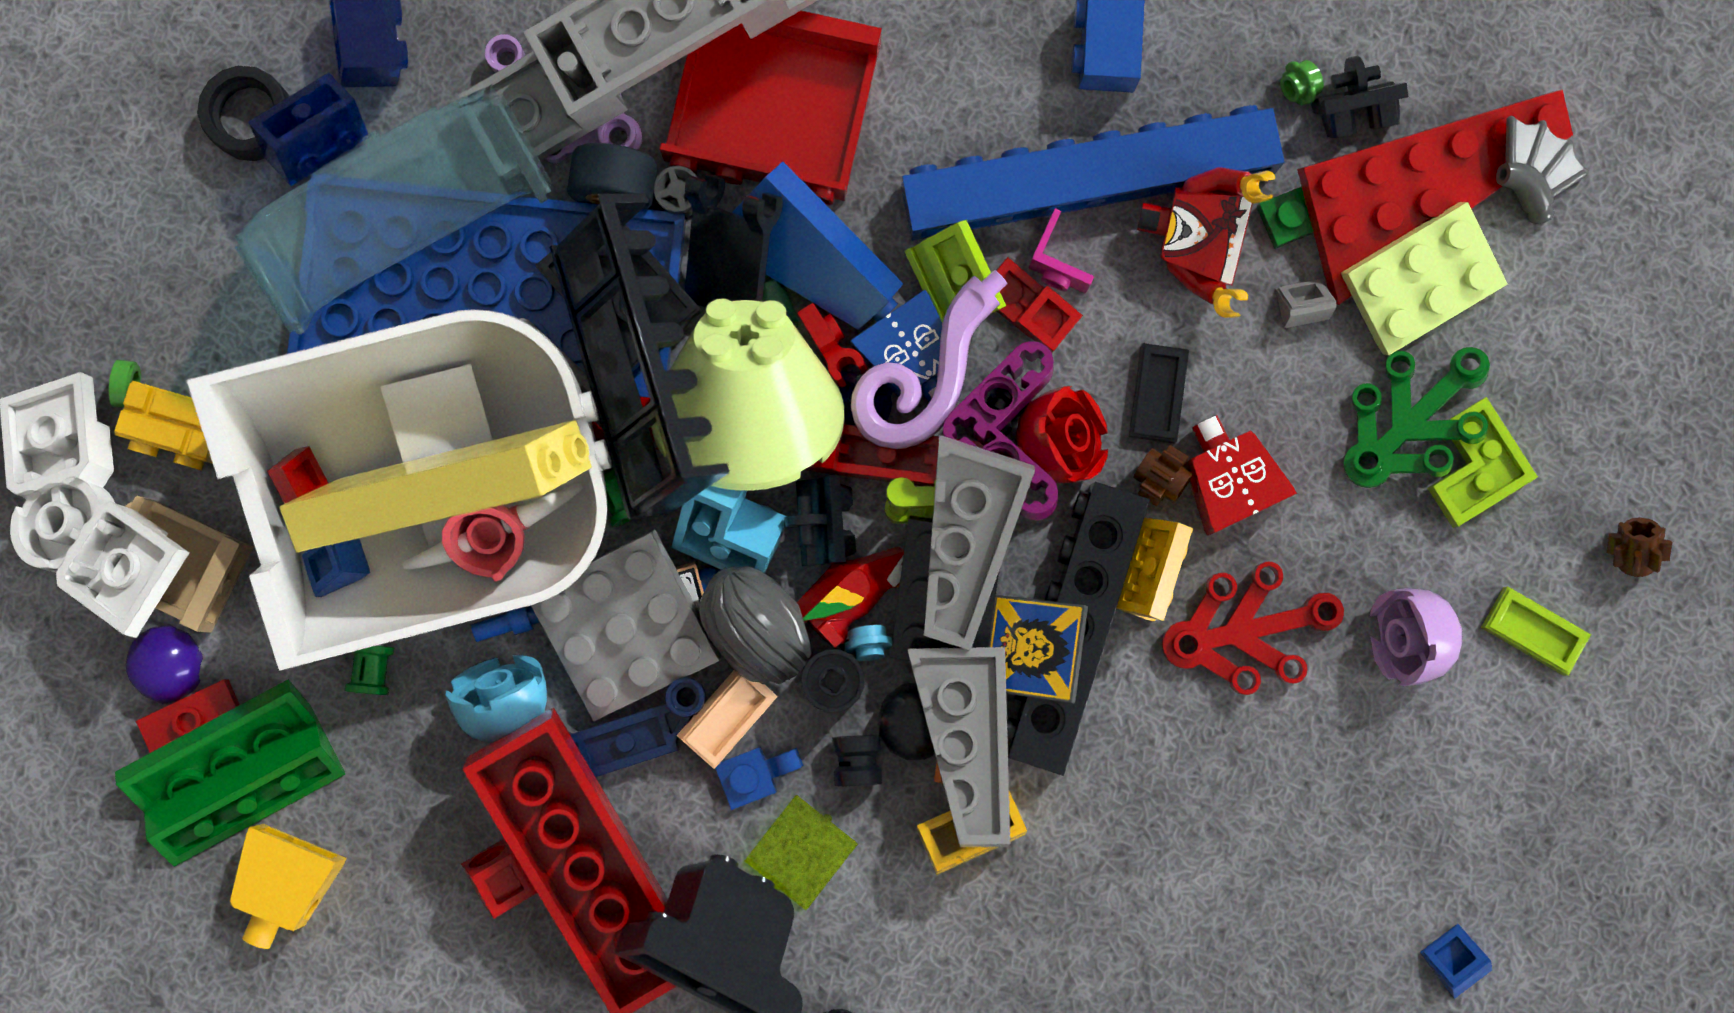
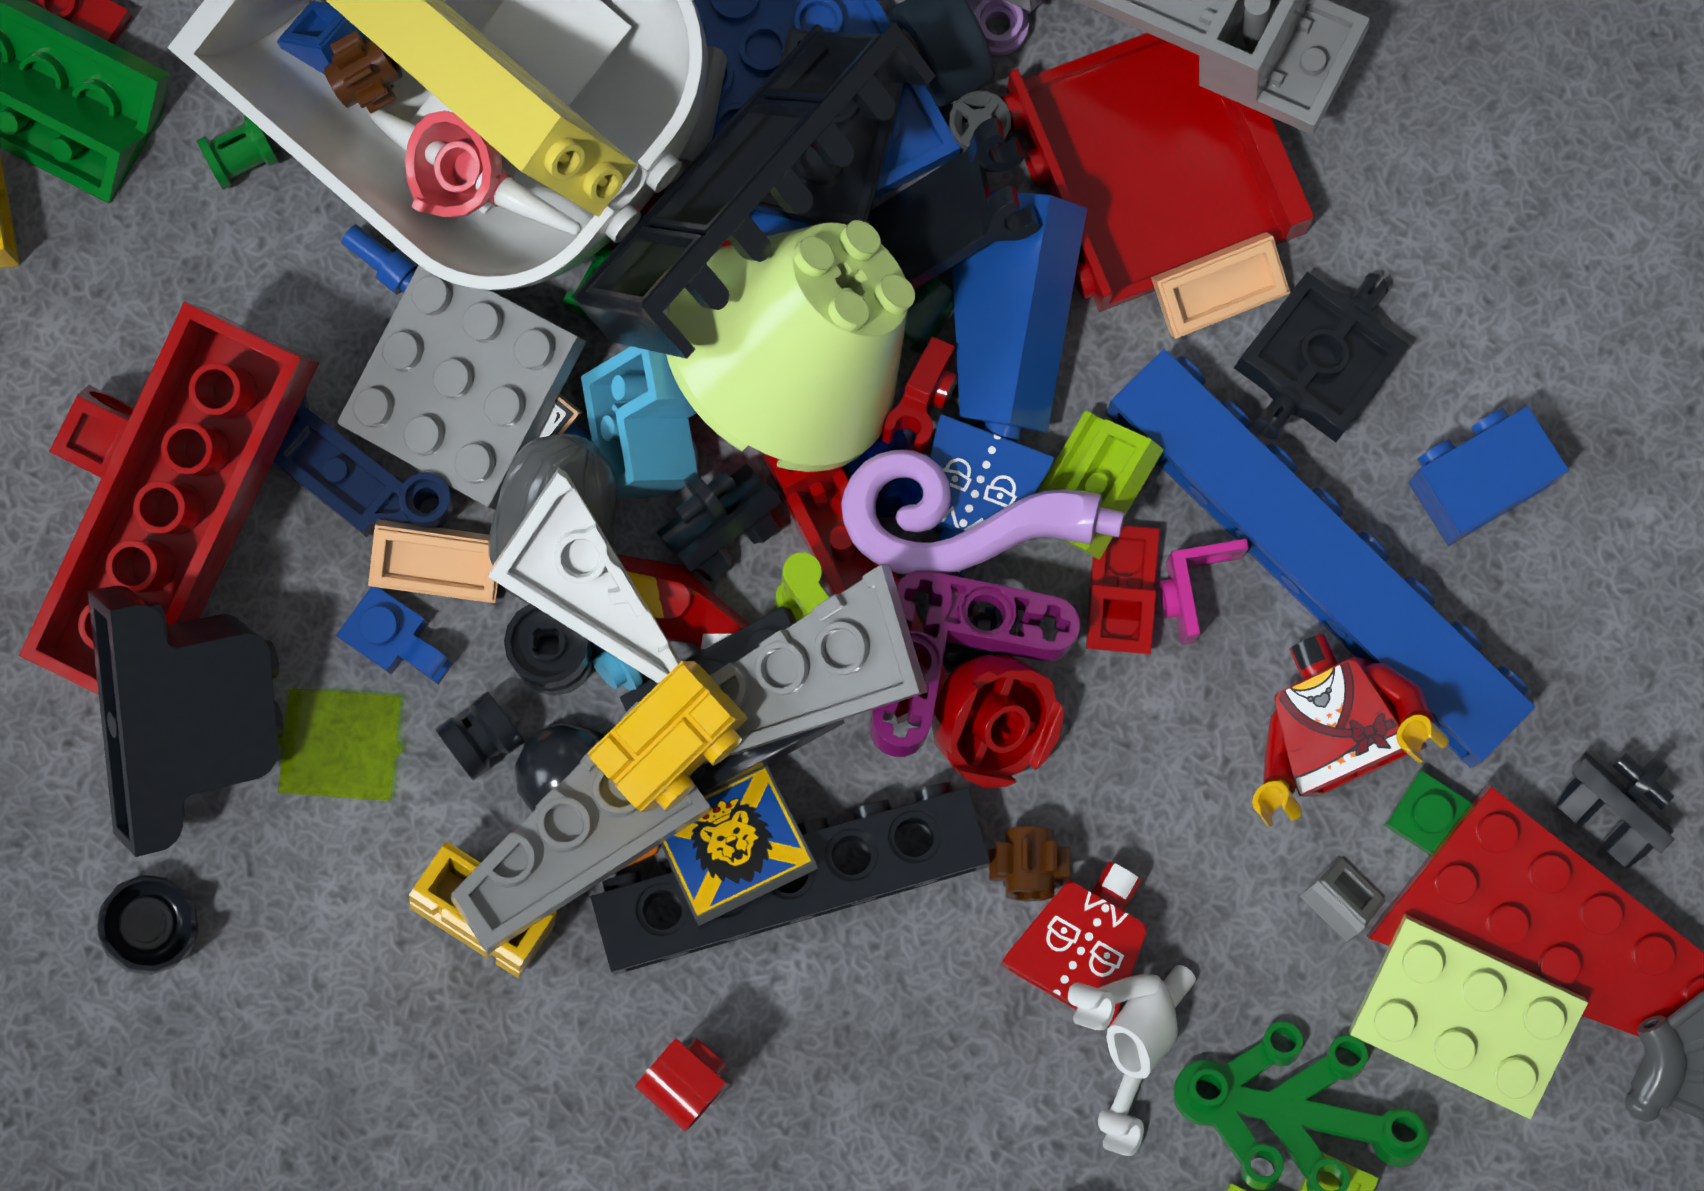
camera: 60 degrees right, 5 degrees down
(377, 556) = (362, 73): none -> reddish brown gear
(498, 699) = (293, 300): medium azure cylinder -> none
(808, 635) = (574, 575): none -> white wing
(880, 115) = (1220, 285): none -> light nougat tile
(953, 644) = (669, 738): none -> yellow brick
(969, 85) = (1321, 356): none -> black plate
(1154, 569) = (914, 920): yellow bracket -> none
(1158, 393) = (1123, 801): black tile -> none
(1164, 773) = (684, 1081): none -> red plate
(1243, 630) = (917, 1075): red plant -> none
(1301, 82) = (1594, 725): bright green plate -> none
(1307, 478) = (1135, 1039): none -> white piece

